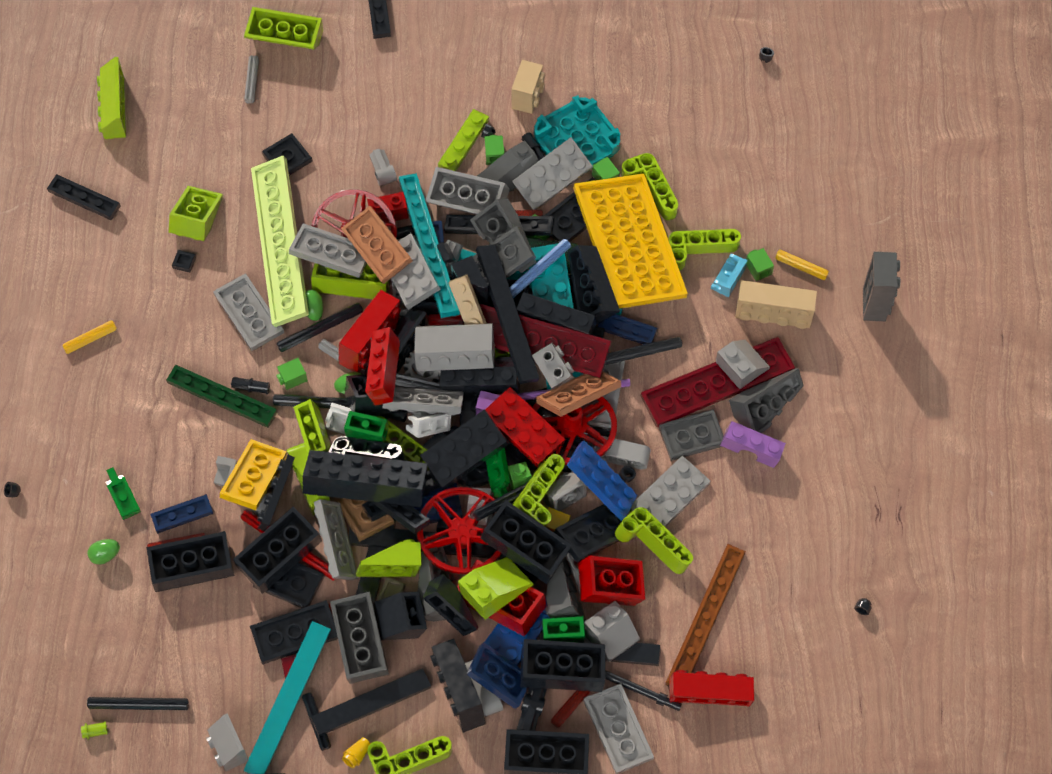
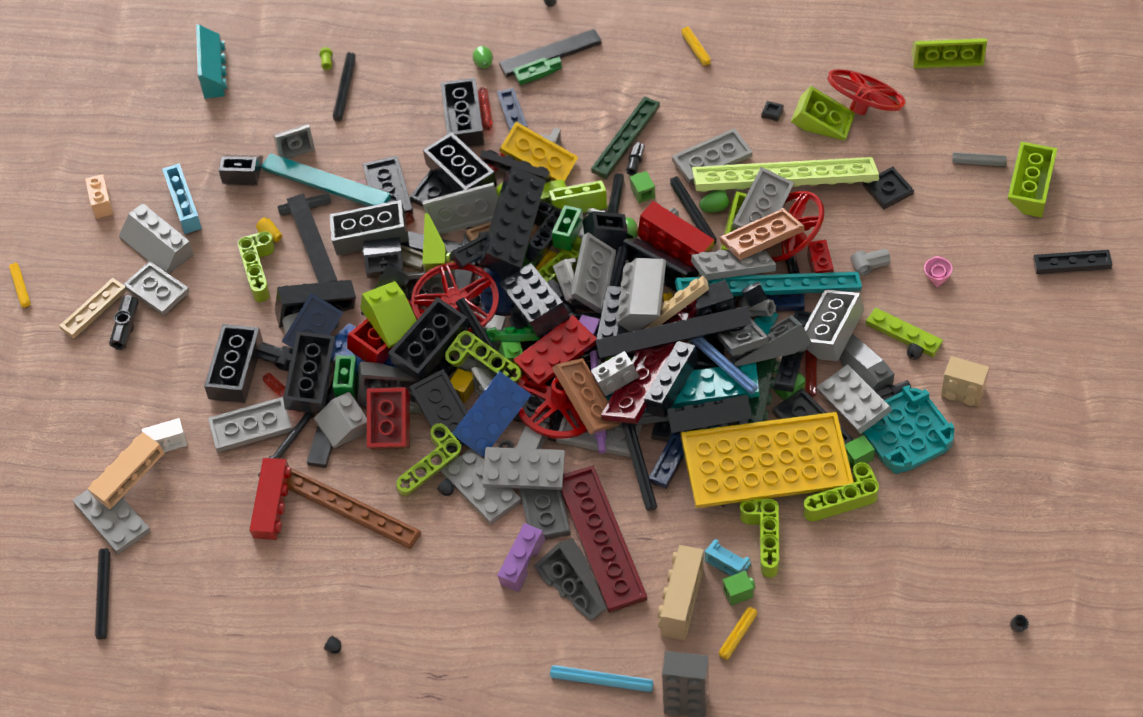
camera: 100 degrees right, 10 degrees down
(83, 197) = (843, 36): black plate -> none
(93, 484) = (557, 49): none -> tile
(176, 171) = (864, 93): none -> red wheel
(382, 366) = (623, 230): red brick -> none
(392, 111) = (938, 270): none -> bright pink hat
(493, 148) = (892, 353): bright green brick -> none
(655, 450) = (523, 468): none -> light grey plate
(675, 525) = (446, 487): none -> black hinge
(741, 362) = (614, 552): light grey slope -> none
(862, 371) = (601, 678): none -> medium azure axle

